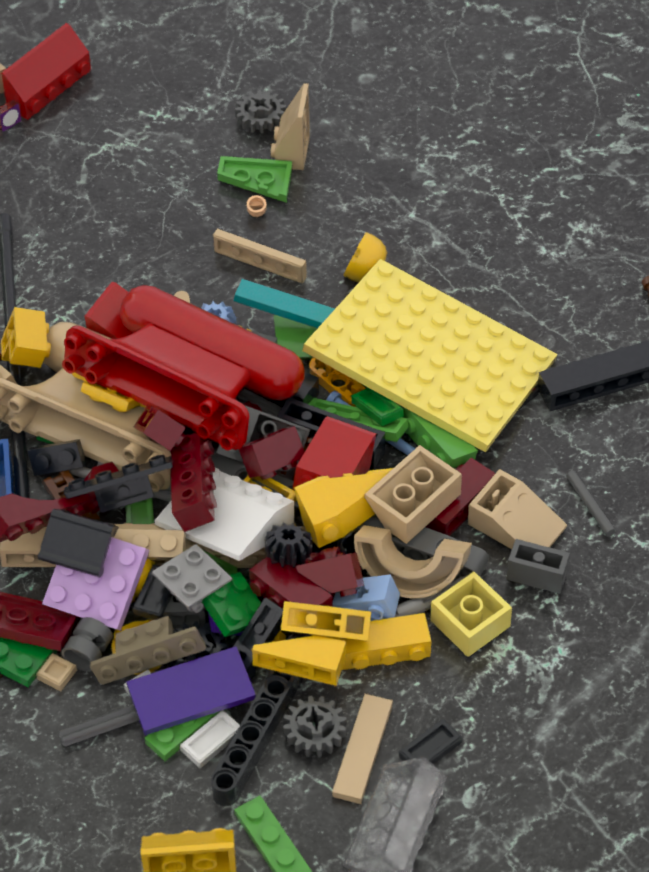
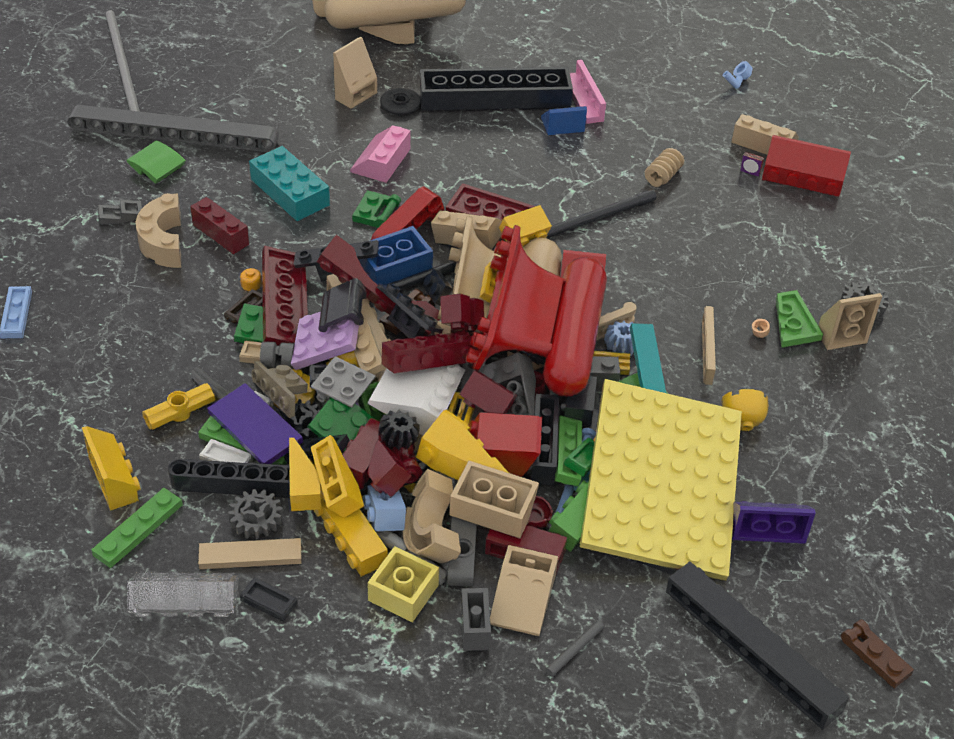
camera: 65 degrees right, 5 degrees down
(119, 777) = (178, 406): none -> yellow piece
(512, 290) = (772, 522): none -> dark purple slope

